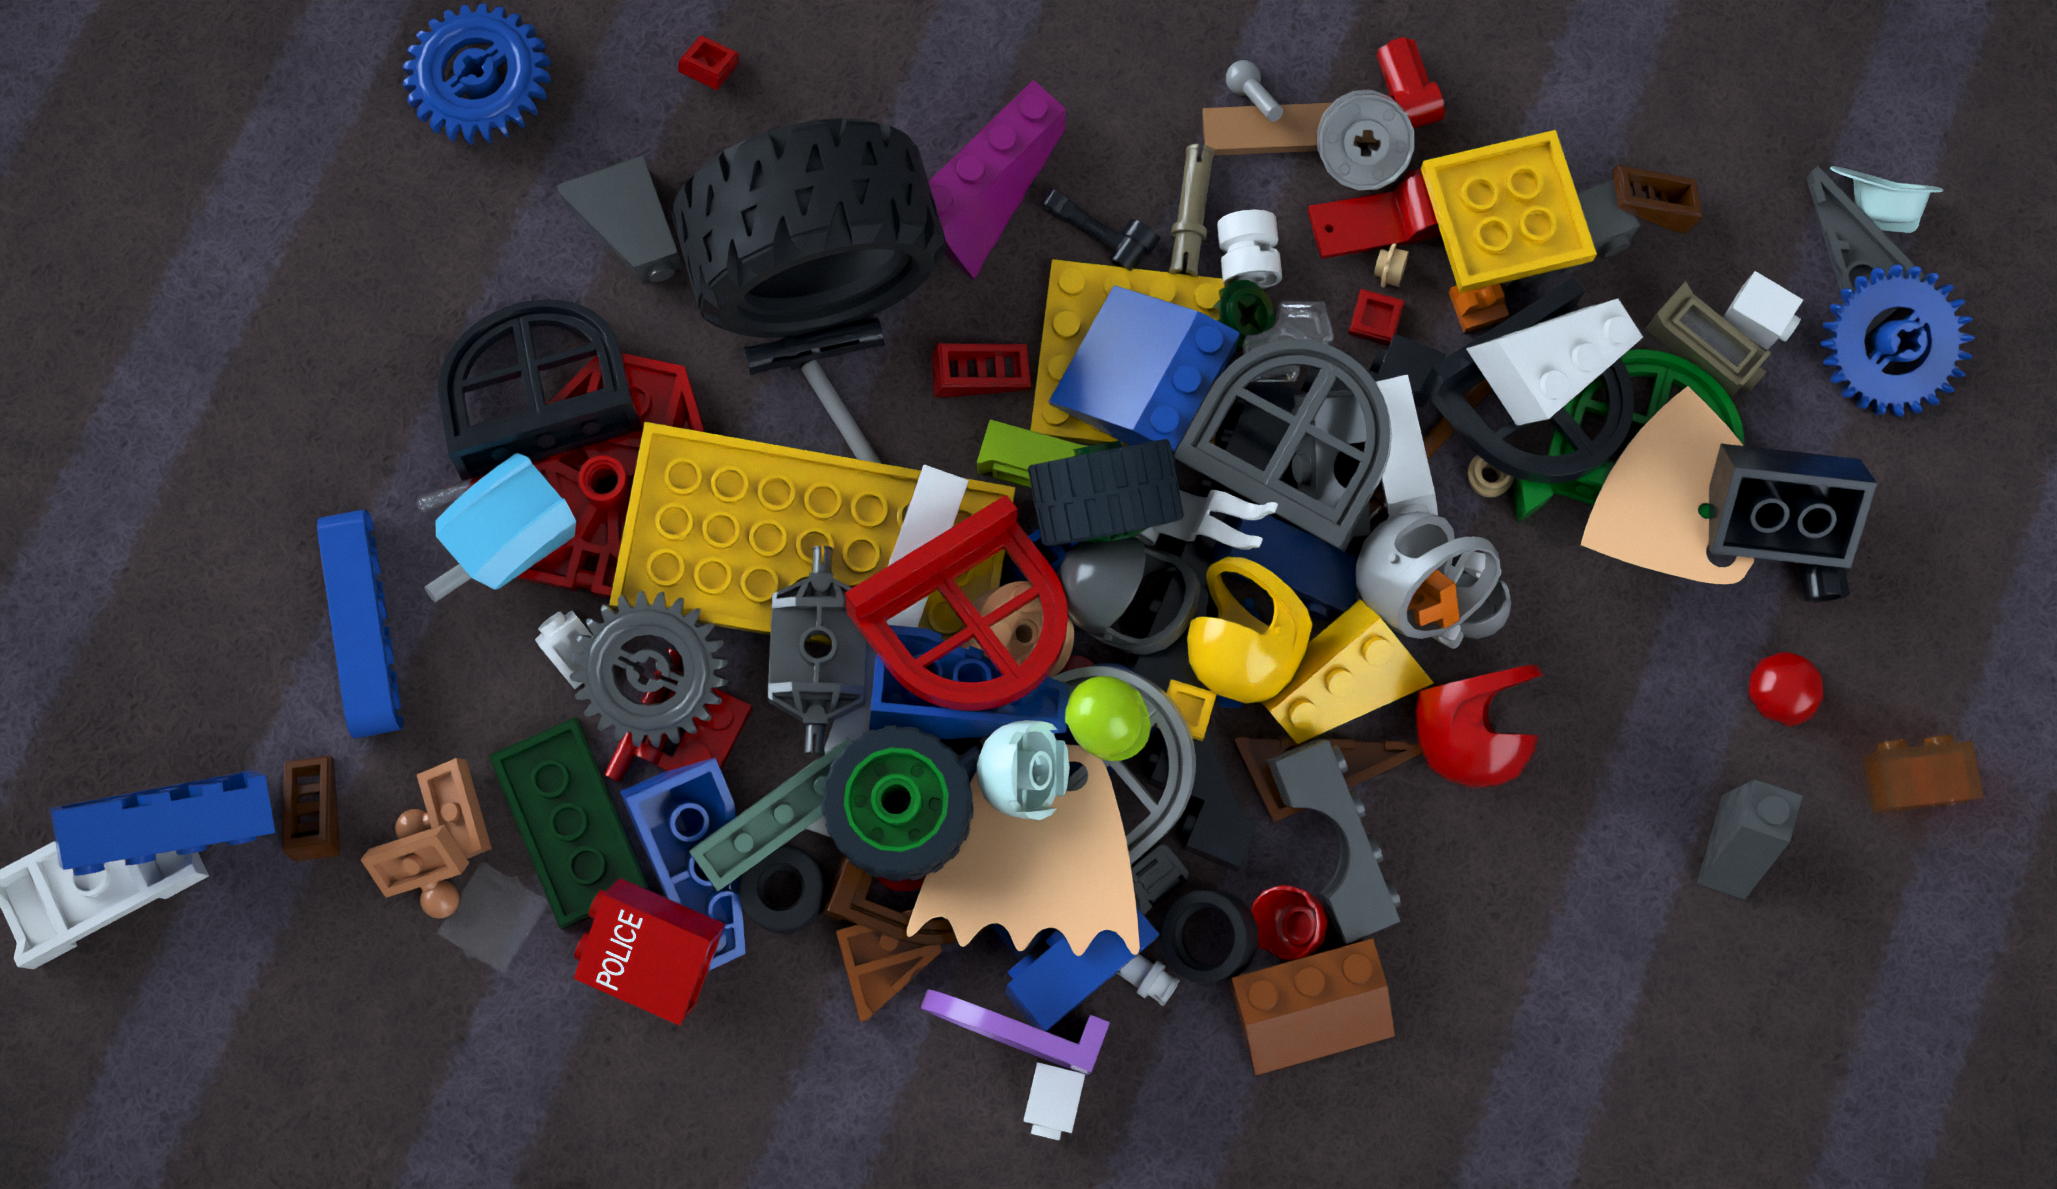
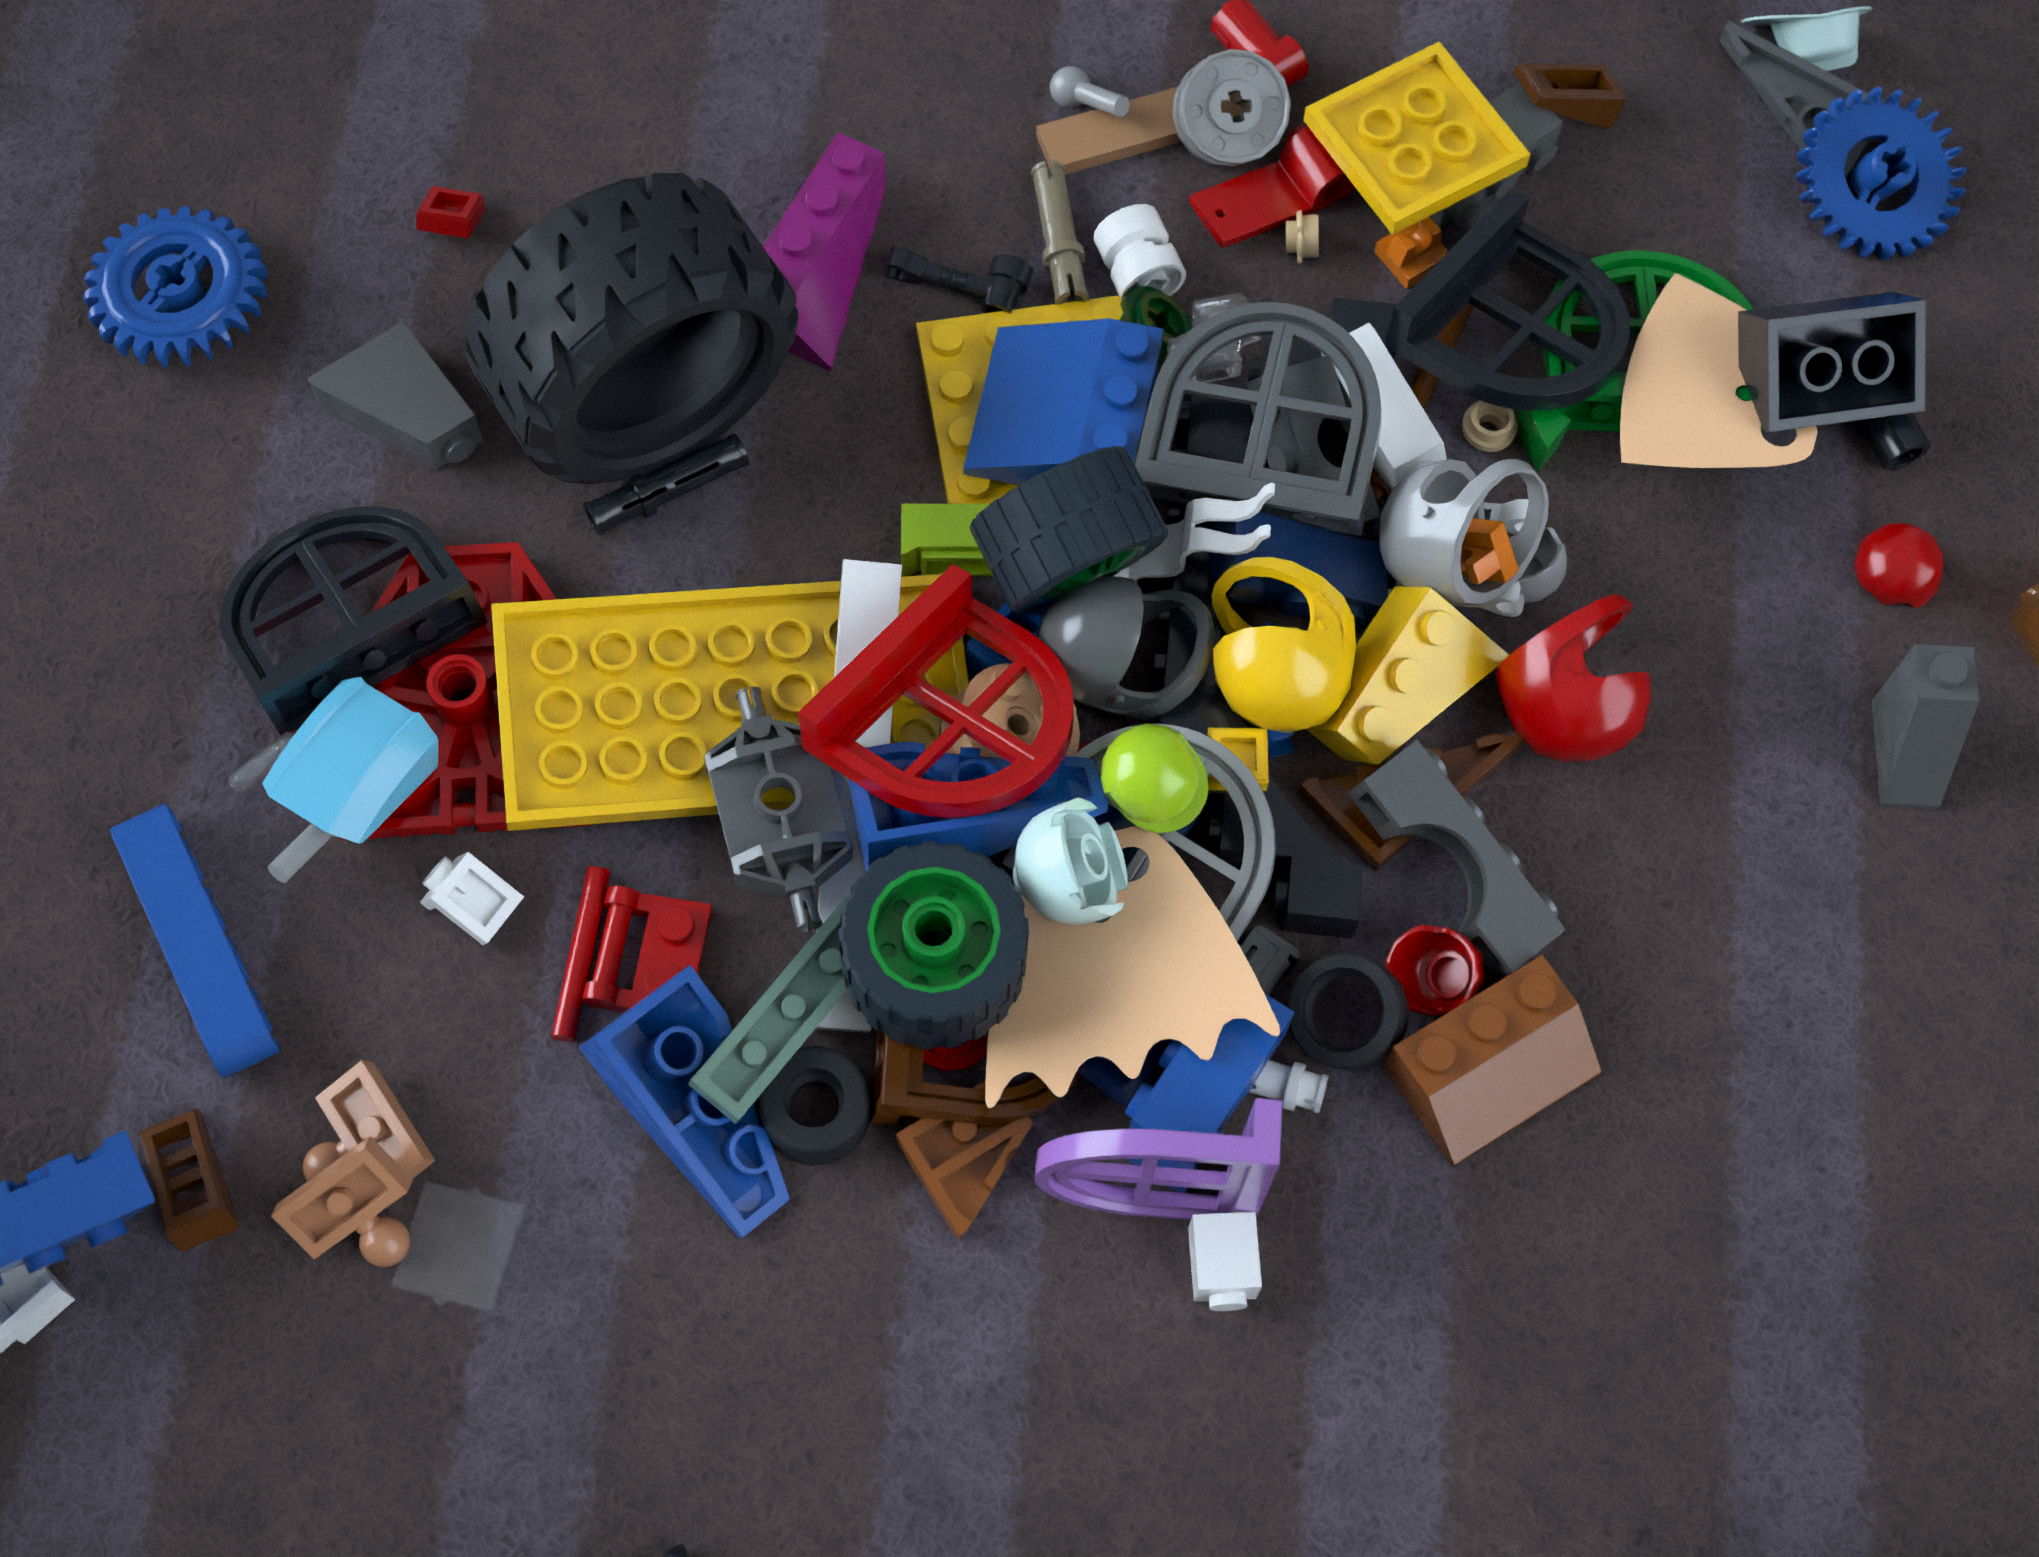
camera: 20 degrees left, 10 degrees down
(566, 819) = (524, 1106): dark green tile -> none
(605, 650) = (518, 871): dark grey gear -> none
(647, 950) = (668, 1221): red brick -> none
(838, 412) = (711, 546): light grey bar -> none
(981, 384) = (853, 483): red slope -> none
(1376, 317) = (1305, 288): red tile -> none
(1555, 360) = (1523, 267): white wedge -> none
(1708, 341) = (1677, 224): dark tan window -> none
(1764, 311) = (1726, 181): white brick -> none

